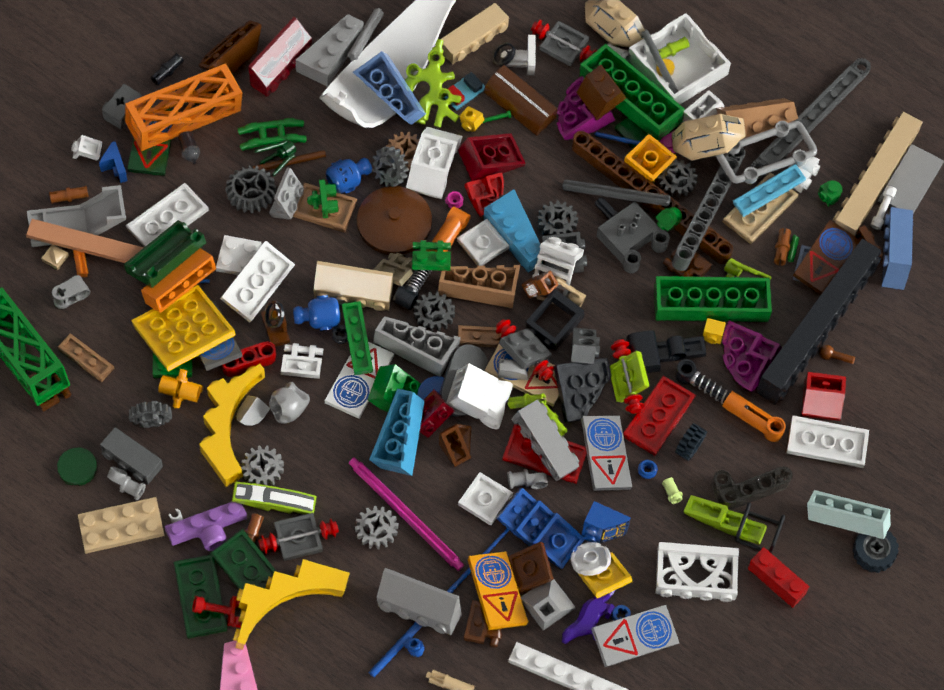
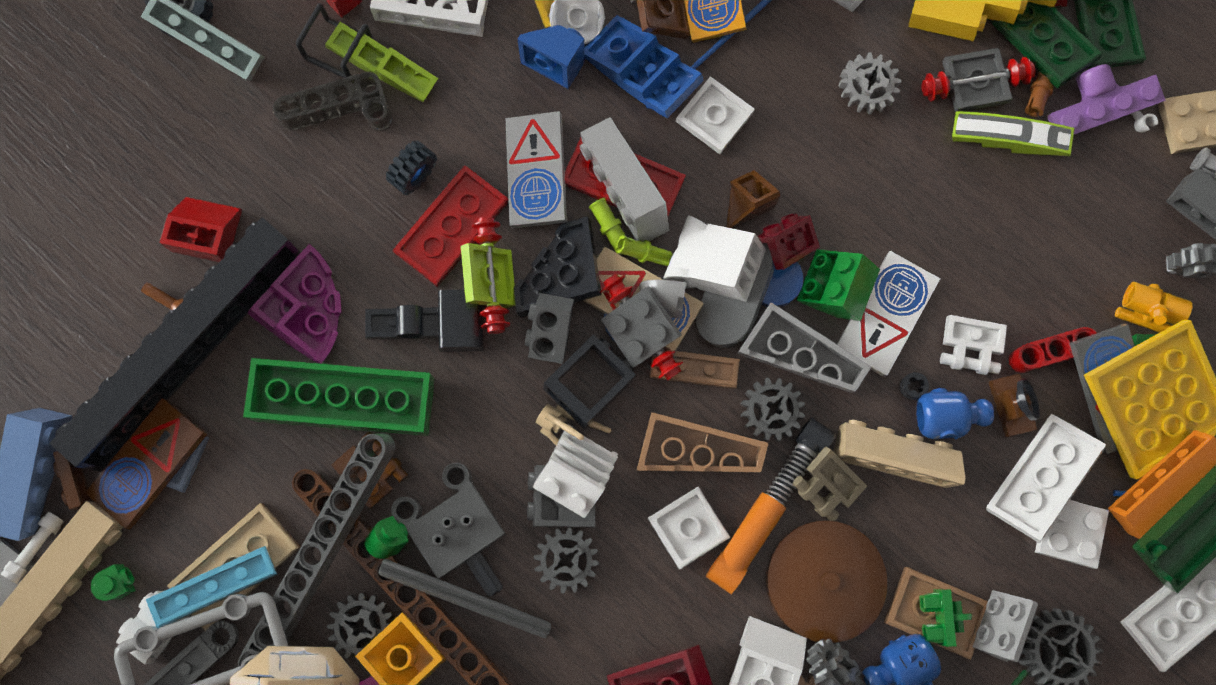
camera: 175 degrees left, 15 degrees up
(218, 420) = (1092, 213): yellow arch -> none
(252, 411) = (1047, 267): light grey brick -> none
(271, 464) = (1029, 182): light grey gear -> none
(288, 403) = (993, 273): light grey piece -> none
(357, 338) = (893, 368): green plate -> none
(399, 434) = (836, 201): dark azure wedge -> none
(431, 259) = (777, 482): green plate -> none
(448, 555) = (827, 104): dark pink piece -> none
(454, 196) = (736, 610): dark pink plate -> none
(485, 191) = (677, 622): red brick -> none
(514, 226) = (640, 551): dark azure wedge -> none
(535, 480) = (659, 139): light grey connector -> none
(537, 285) = (607, 436): dark orange leg -> none
(647, 464) = (479, 136): blue plate -> none
(672, 491) = (449, 108): yellowish green pin -> none
(713, 331) = (348, 347): yellow plate -> none
(732, 402) = (339, 232): piece -> none
(735, 268) = (295, 455): lime plant -> none
(782, 246) = (212, 489): dark orange pin -> none
(793, 247) = (196, 488): green piece -> none
(827, 441) = (211, 164): white plate -> none

